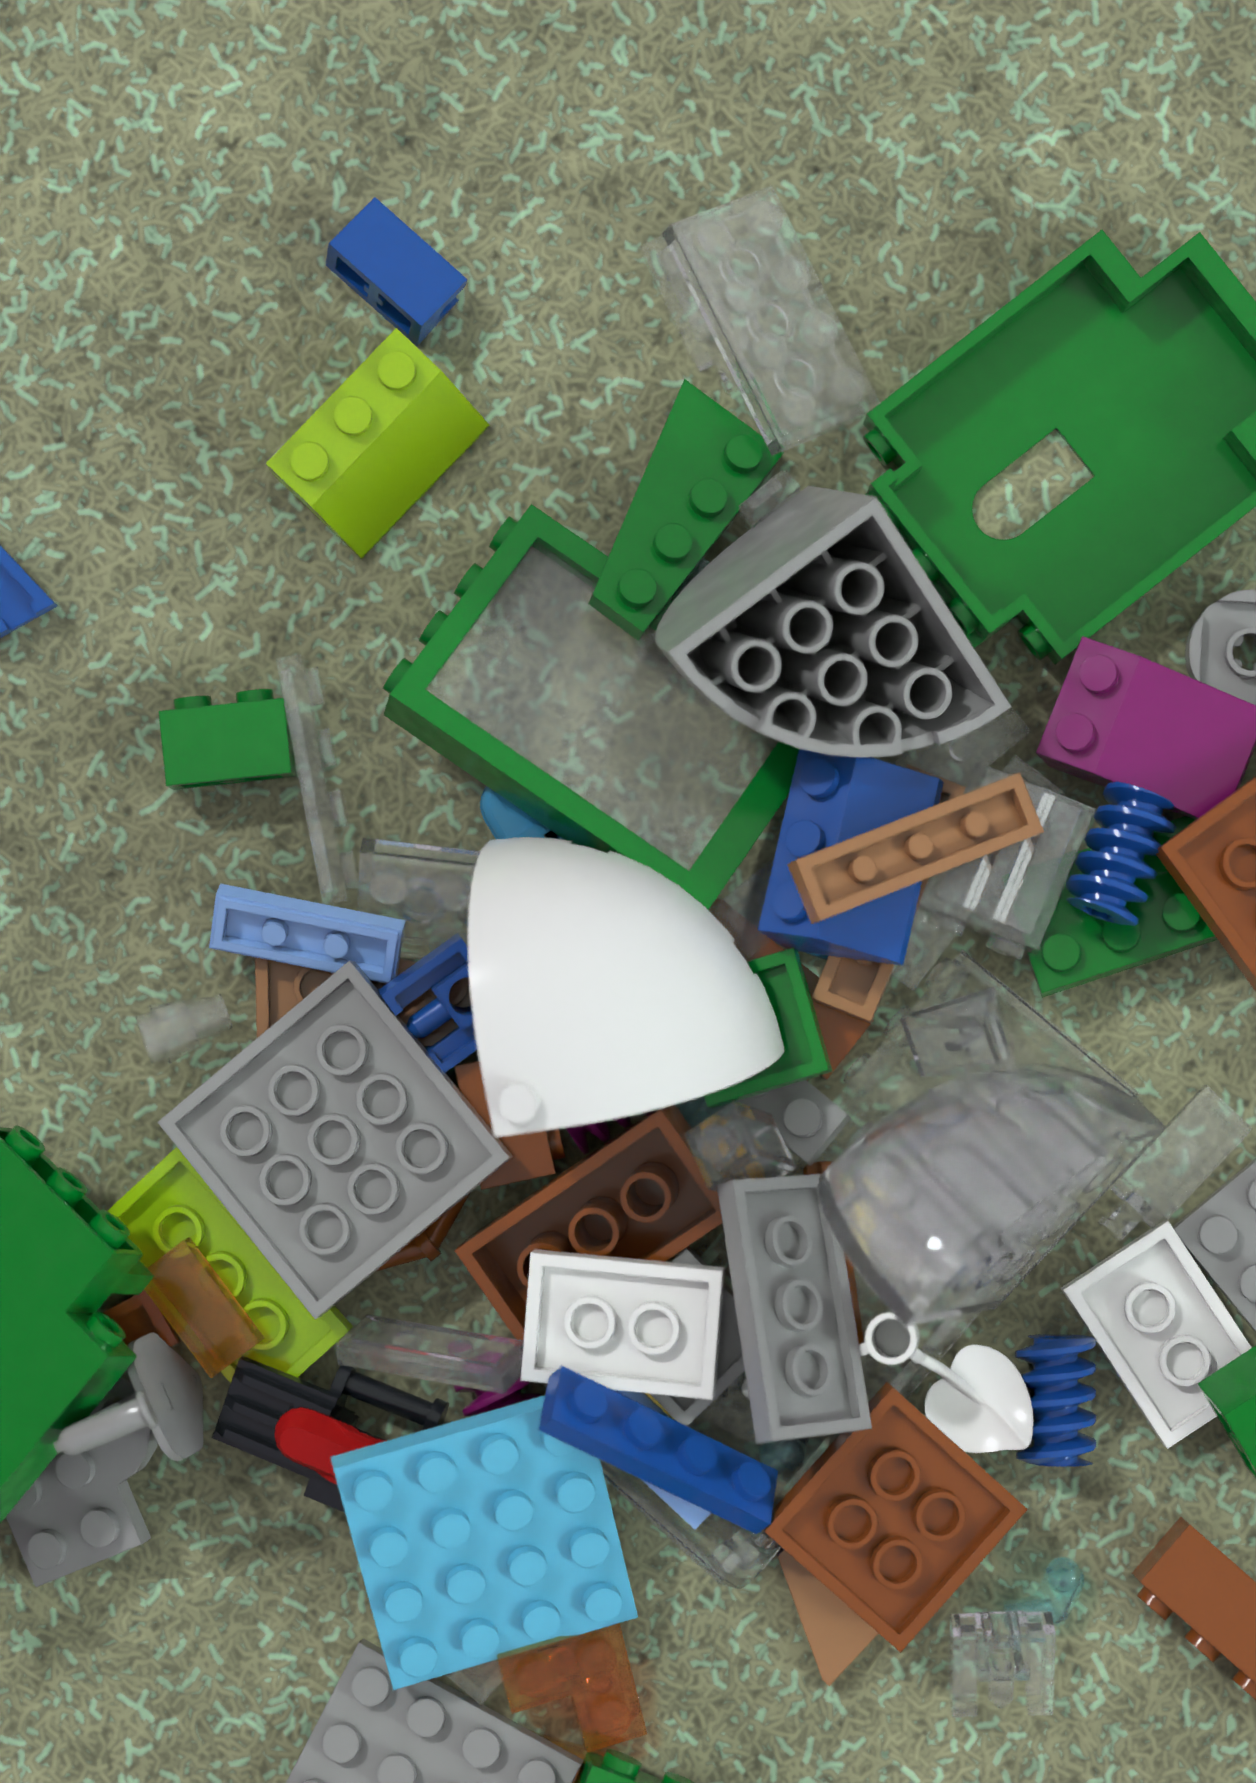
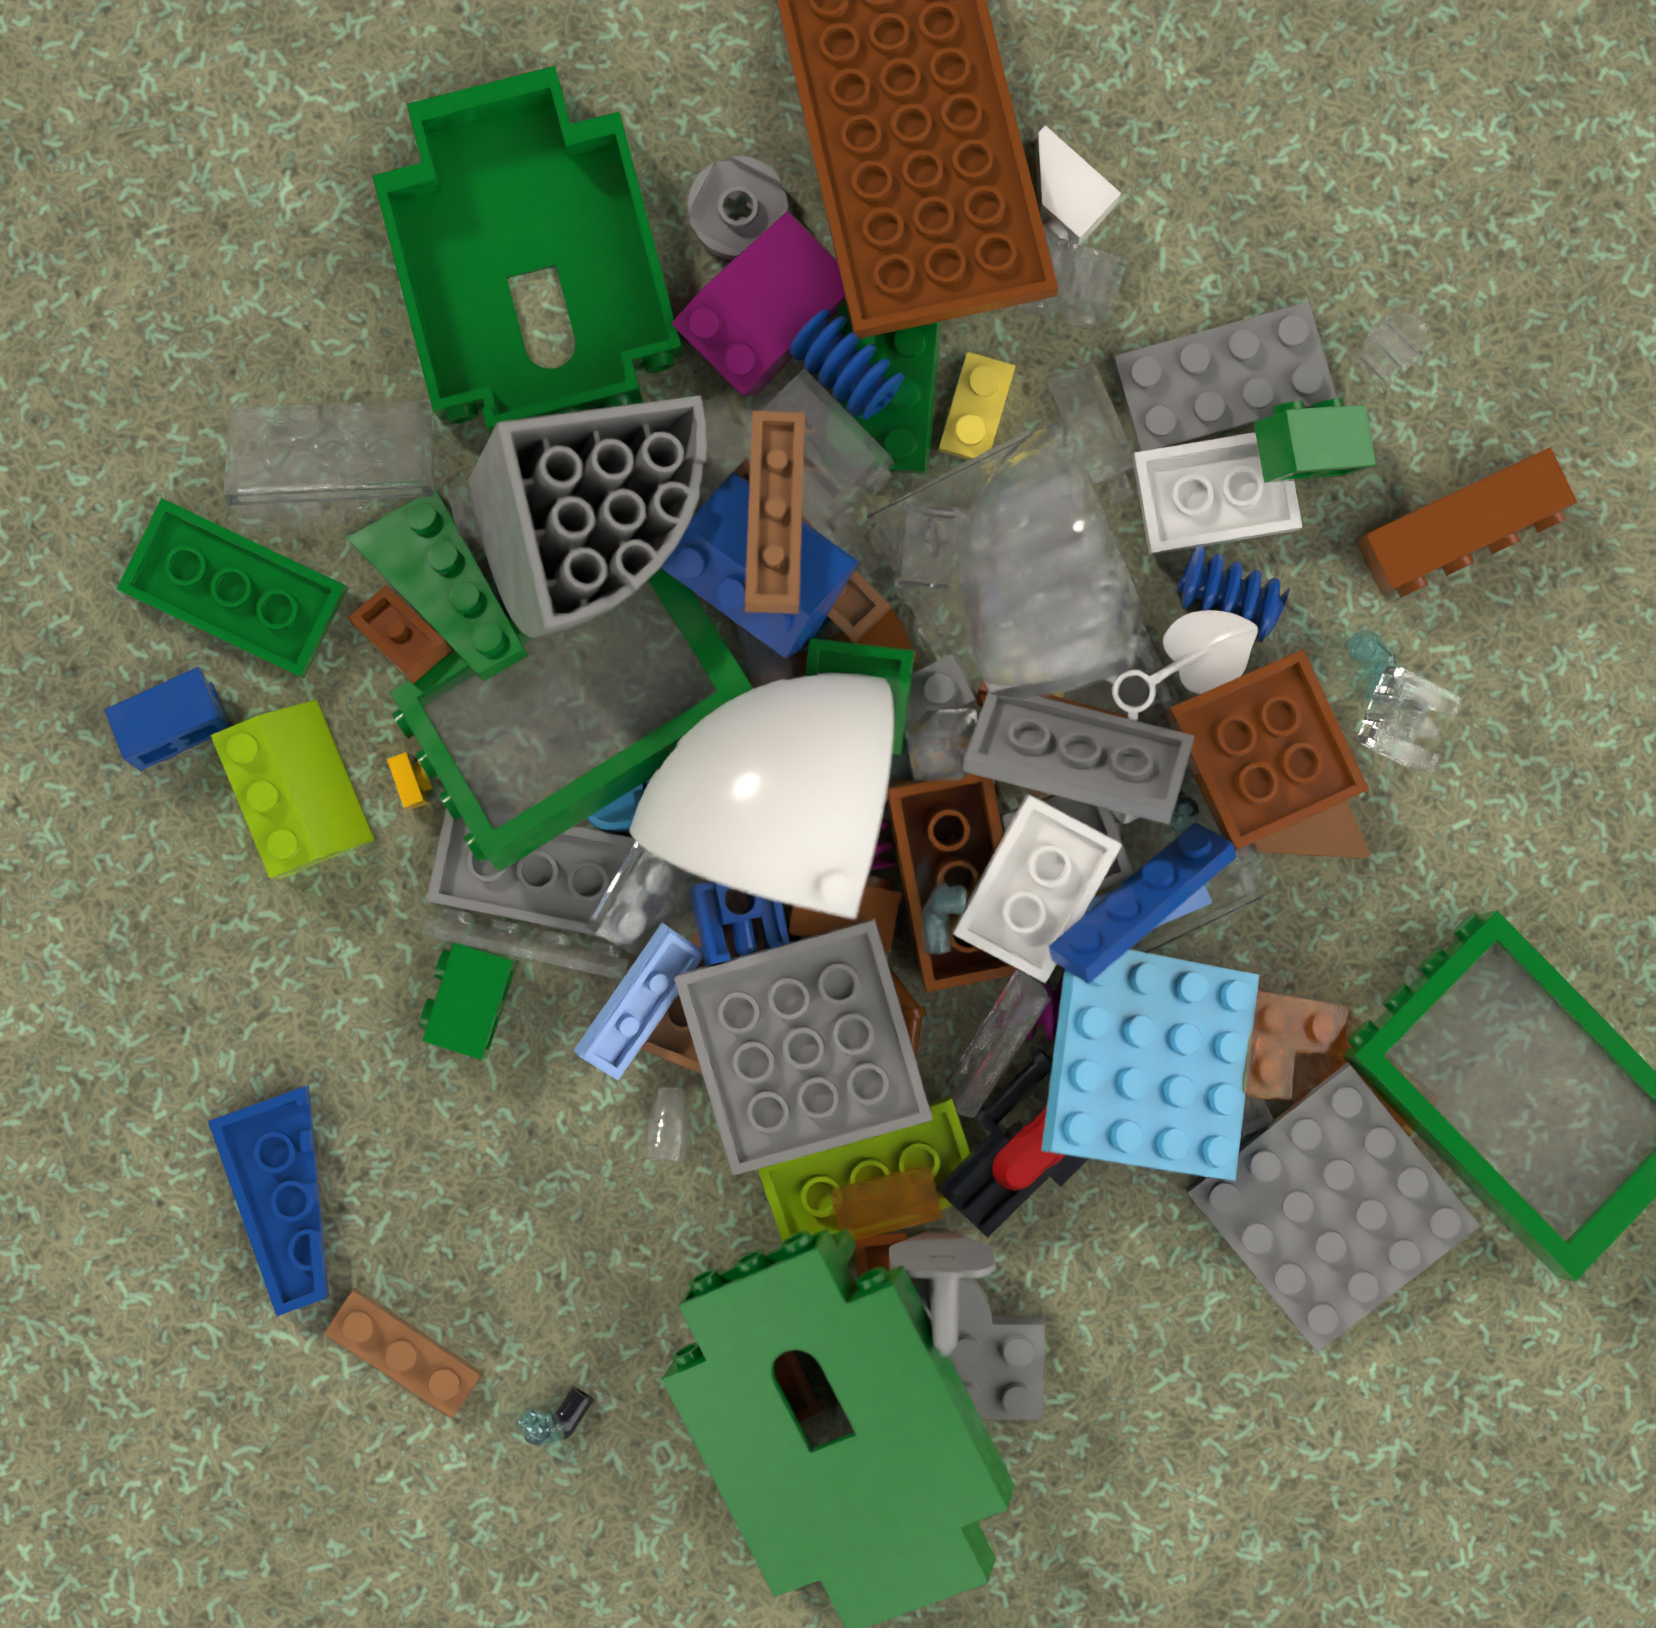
camera: 70 degrees left, 0 degrees up
(392, 778) = (548, 887): none -> light grey plate
(443, 569) = (410, 780): none -> yellow plate
(542, 1225) = (936, 916): none -> clear light blue arm
(572, 278) = (232, 588): none -> green plate
(601, 486) = (399, 634): none -> dark orange plate
(1142, 1020) = (976, 406): none -> light yellow plate

